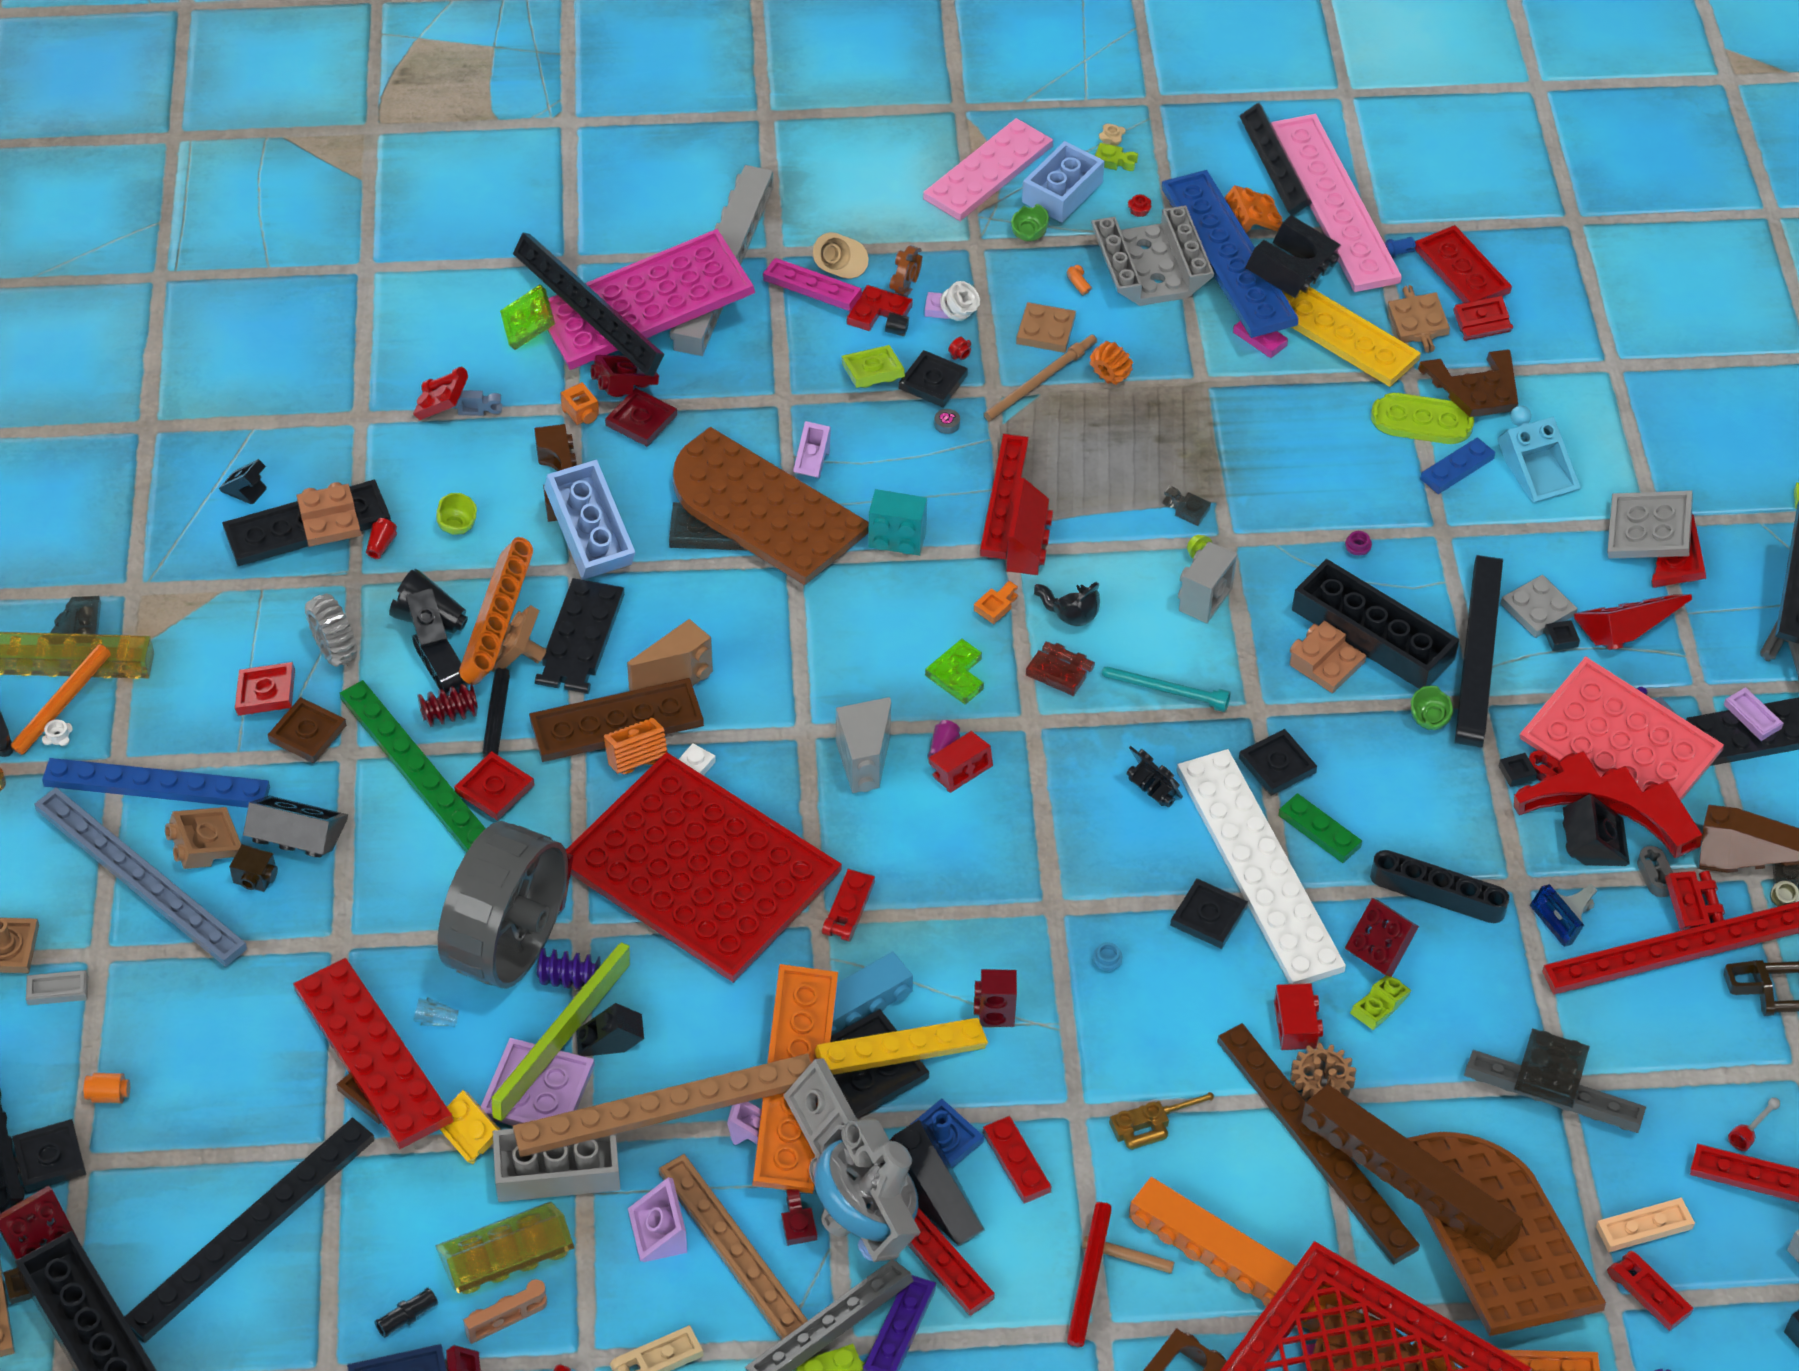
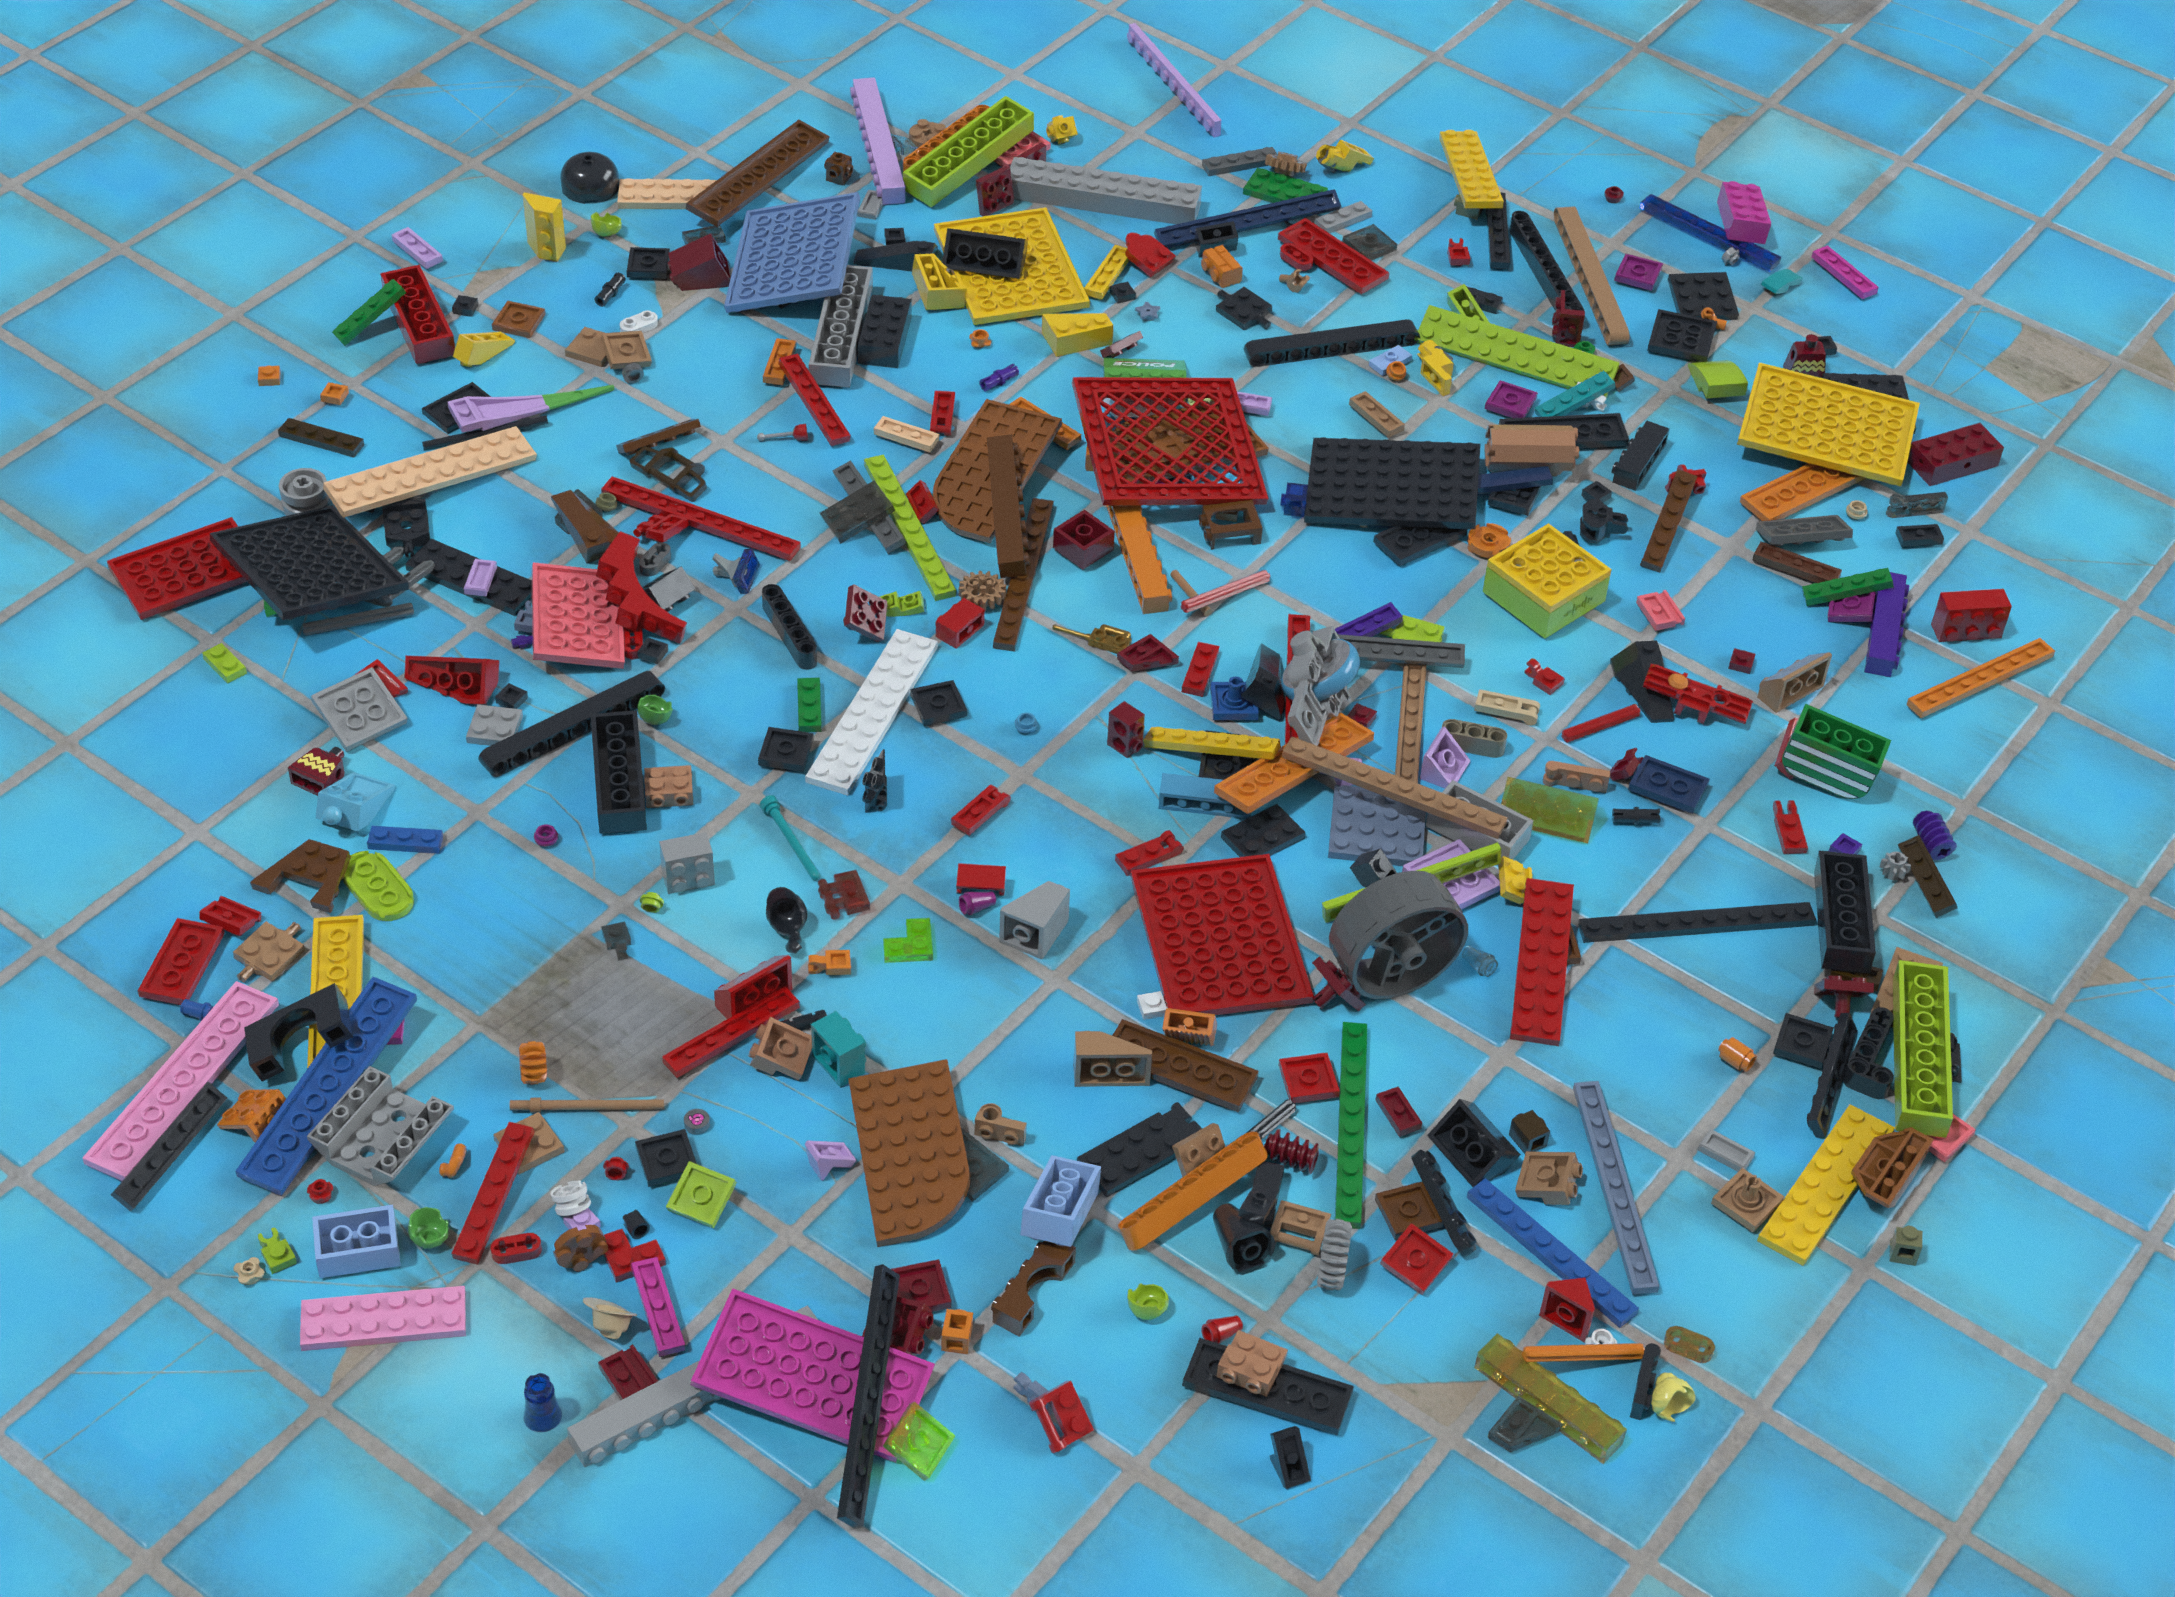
camera: 140 degrees left, 5 degrees down
(98, 721) = (1569, 1306): none -> red slope
(301, 764) = (1450, 1216): none -> black piece
(388, 810) = (1398, 1111): none -> dark red plate
(389, 657) = (1303, 1221): none -> medium nougat plate
(648, 1291) = (1477, 738): none -> dark tan beam
(660, 1066) = (1371, 822): none -> sand blue plate
(714, 563) = (991, 1125): none -> medium nougat plate
(753, 1007) = (1263, 833): none -> black plate
(779, 237) = (626, 1372): none -> dark red plate
(810, 180) = (541, 1406): none -> clear blue plant
(950, 504) = (781, 1049): none -> nougat plate
(961, 545) = (804, 1021): none -> black axle
(962, 261) = (516, 1248): none -> red beam
(1020, 273) = (493, 1193): none -> red plate
(1042, 831) = (980, 809): none -> red plate
(1082, 1128) = (1147, 654): none -> dark red wing
(1297, 1213) = (1083, 539): none -> dark red brick
(1495, 1108) = (911, 529): none -> lime plate
(1524, 1146) = (922, 501): none -> red plate
(1598, 460) = (317, 769): none -> dark red torso

